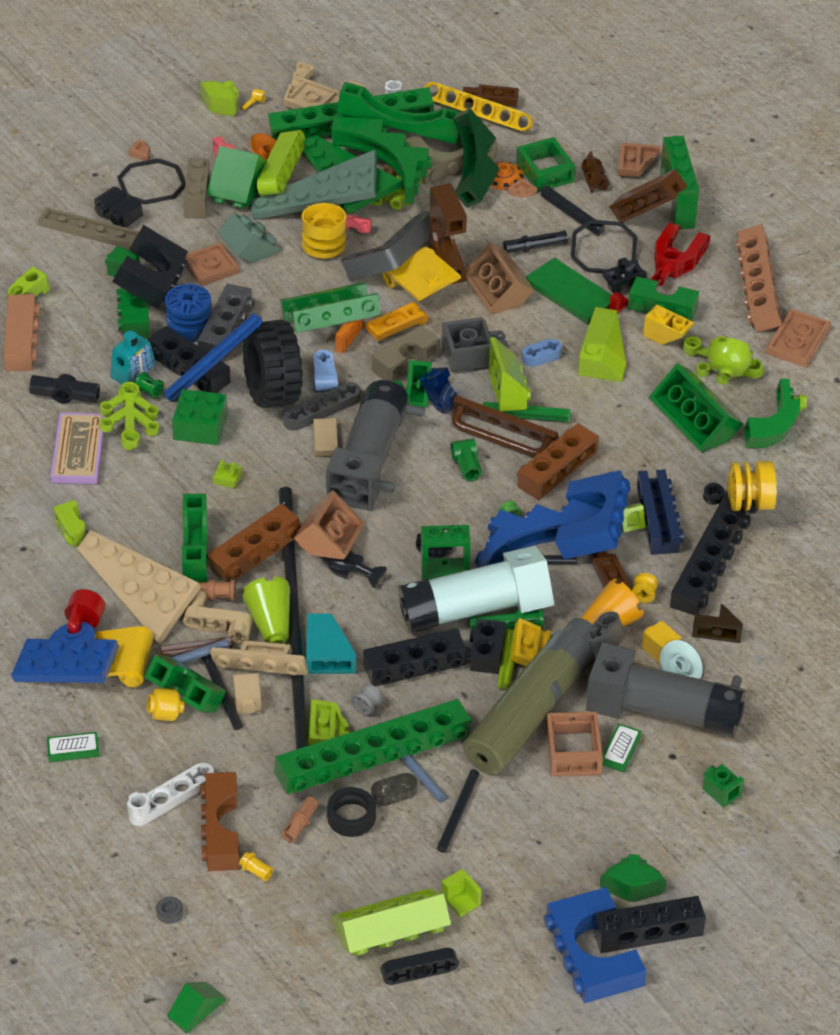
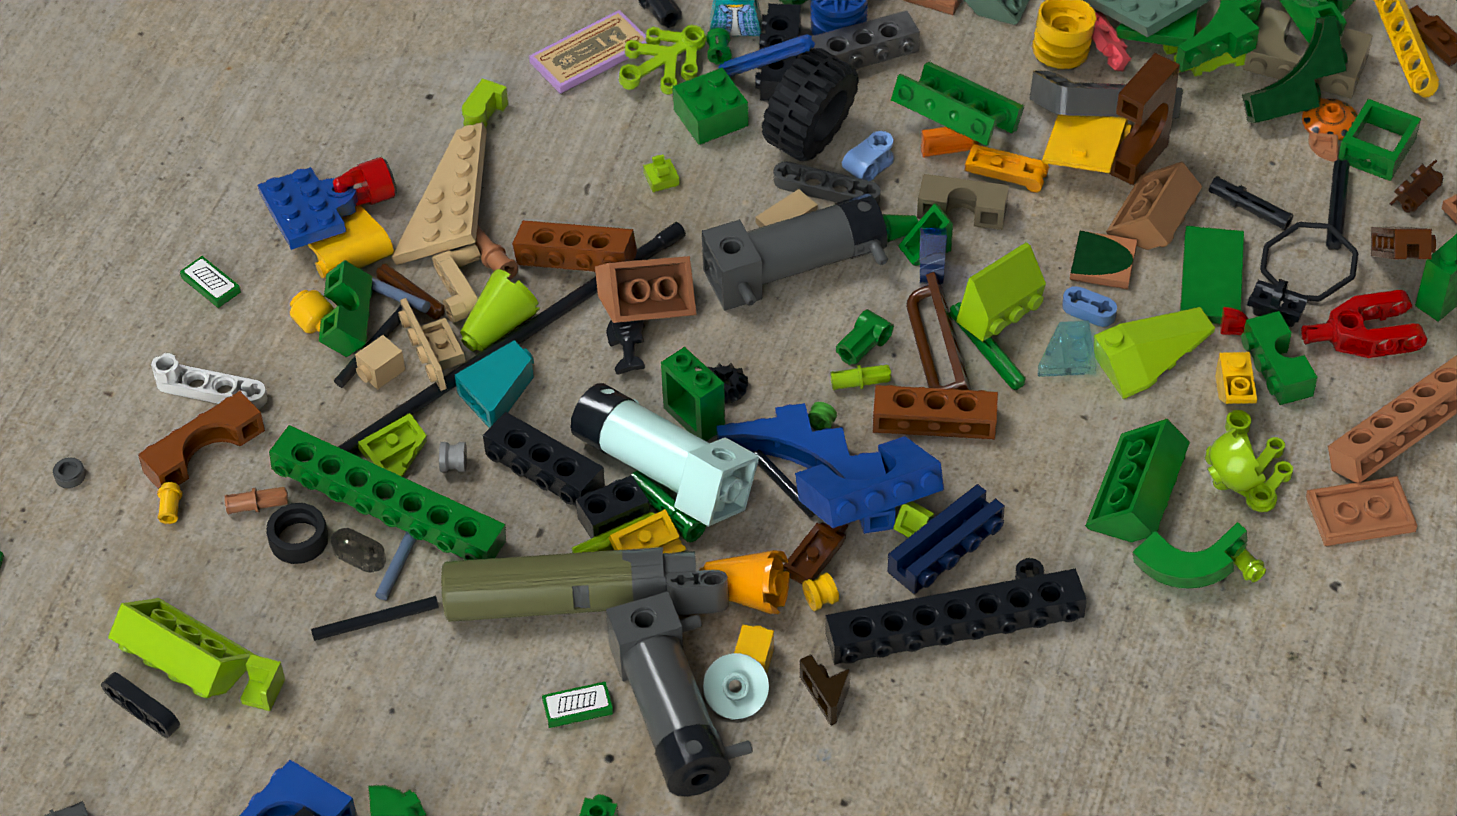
camera: 55 degrees right, 5 degrees up
(195, 537) = (568, 185): green arch -> none
(468, 343) = (1030, 224): dark grey hinge -> none
(494, 479) = (860, 376): none -> lime axle
(515, 323) = (1103, 259): none -> dark green tile
(566, 380) = (1069, 351): none -> clear light blue wing
(574, 762) = (547, 625): nougat window -> none
(747, 486) = (1031, 589): yellow wheel -> none

